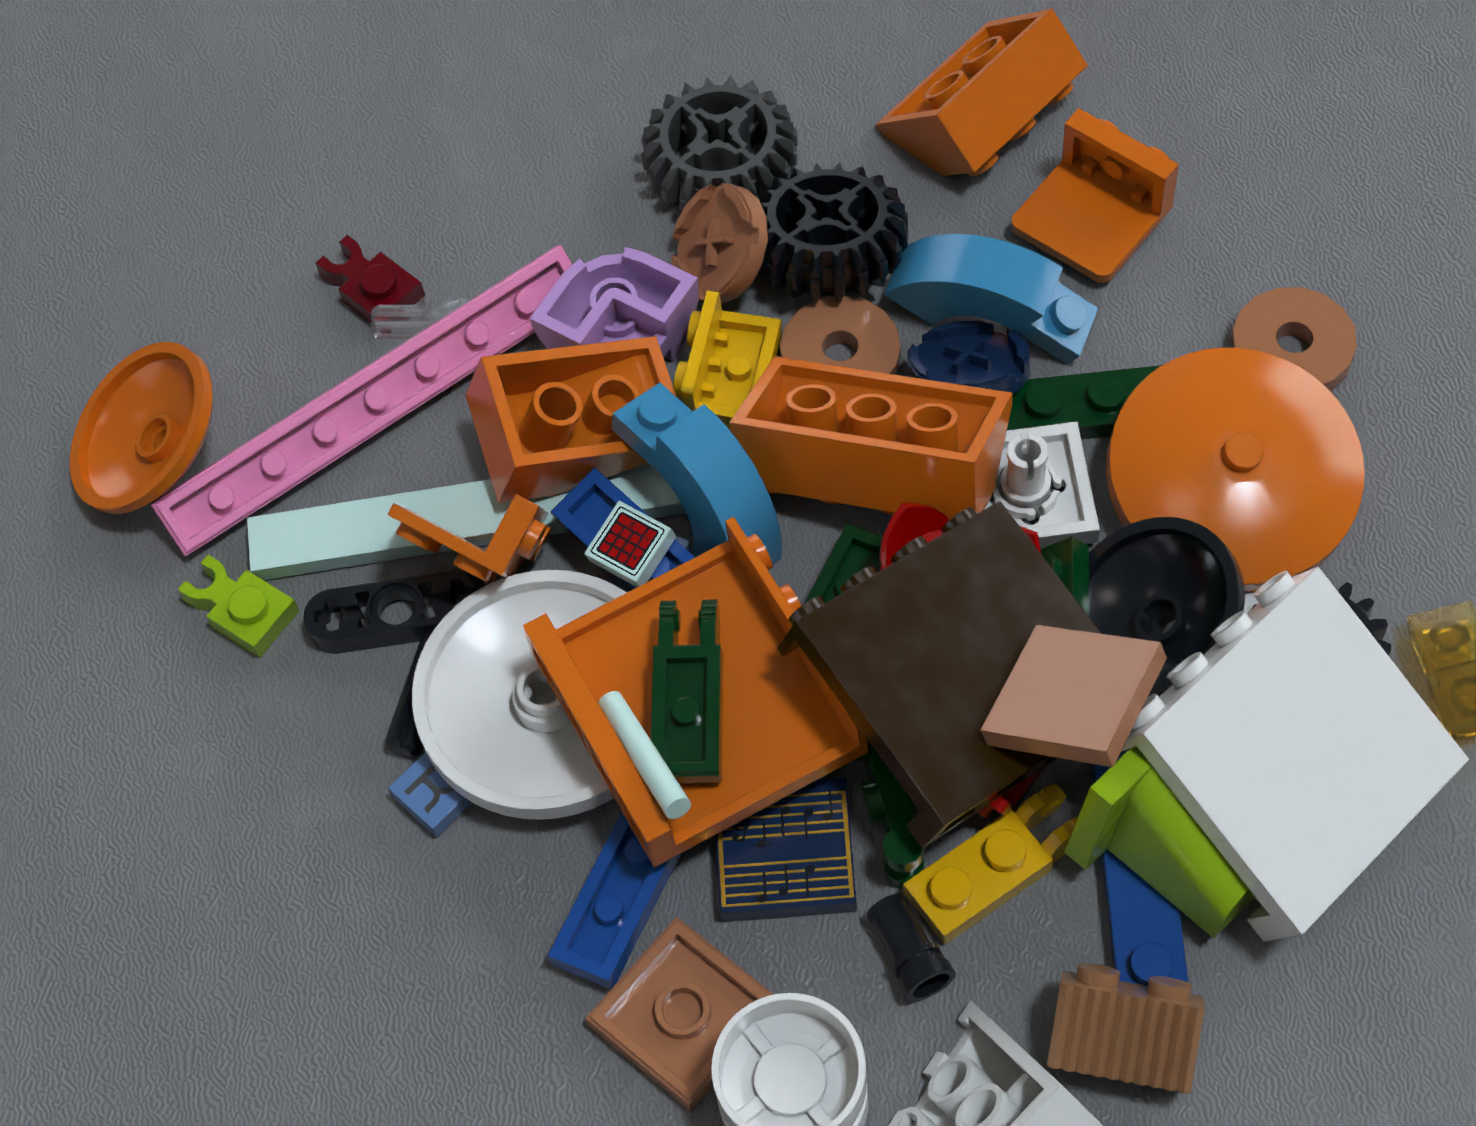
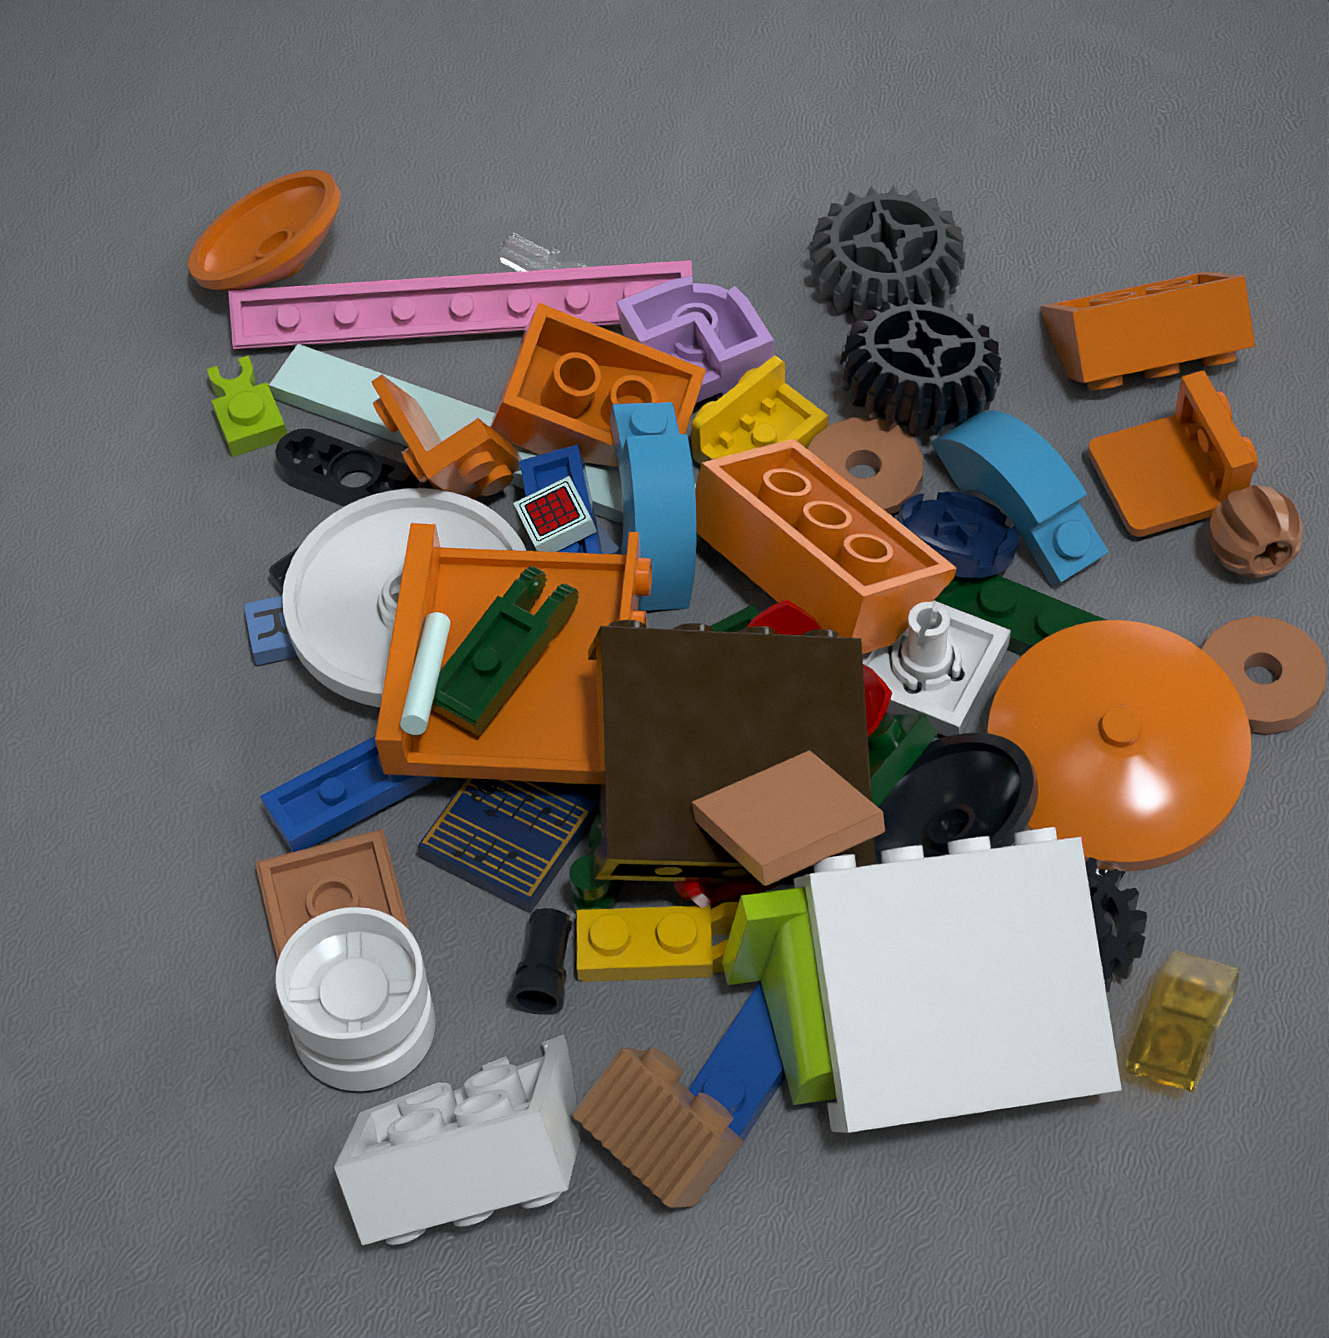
camera: 30 degrees right, 5 degrees down
(369, 282) = (533, 215): dark red plate -> none
(721, 239) = (825, 326): nougat tile -> none
(1206, 224) = (1255, 531): none -> nougat piece

